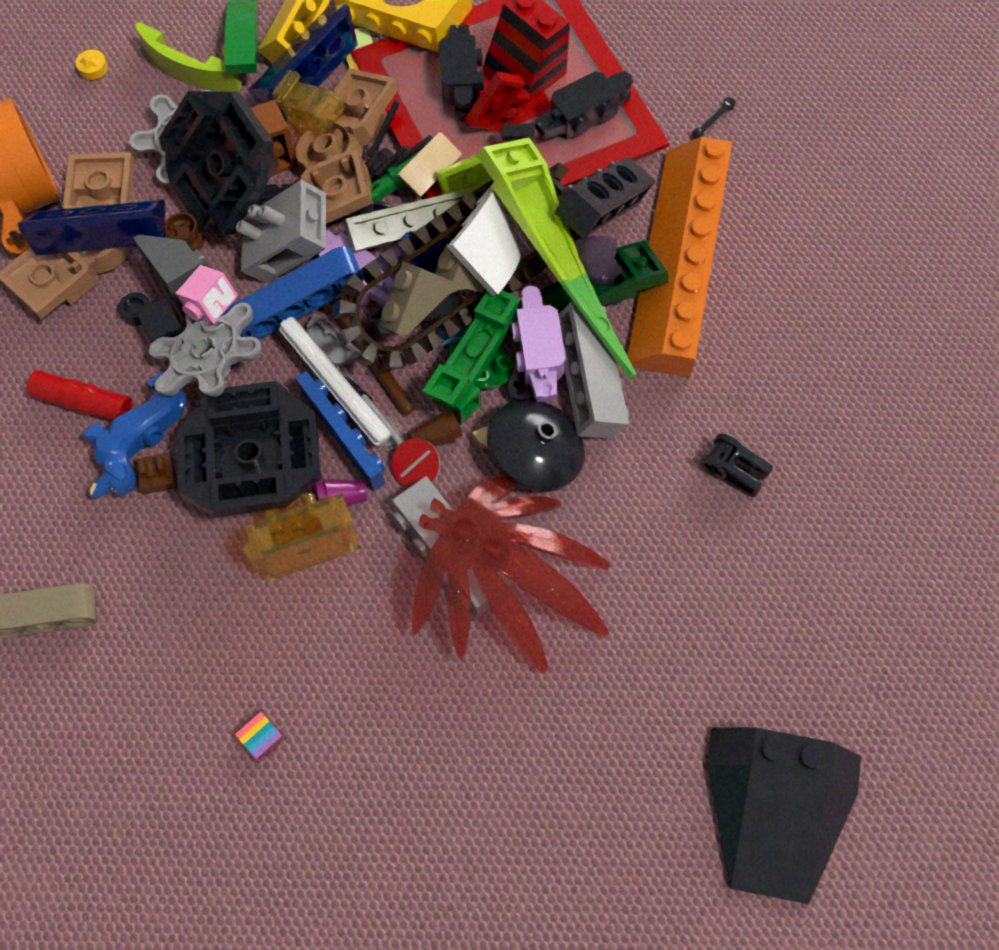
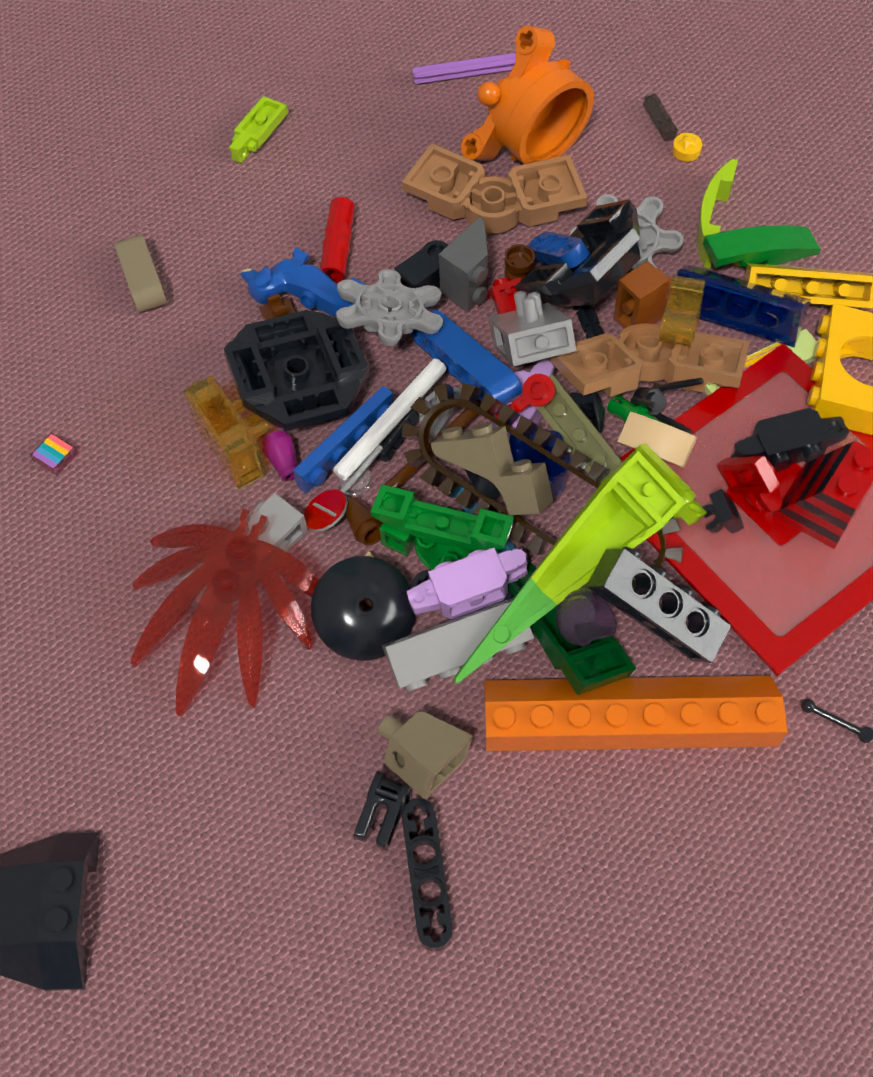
camera: 80 degrees right, 5 degrees down
(43, 75) = (660, 117): none -> clear smoke axle
(92, 226) = (495, 192): clear blue slope -> none
(191, 179) = (558, 248): none -> blue beam
(206, 294) = (439, 288): bright pink brick -> none
(221, 250) = (503, 294): none -> red bracket
(361, 235) = (536, 391): none -> red plate
(488, 243) = (546, 496): white slope -> none
(584, 104) = (788, 570): black hinge -> none
(693, 416) = (424, 750): none -> dark tan torso
(796, 447) = (431, 872): none -> black beam

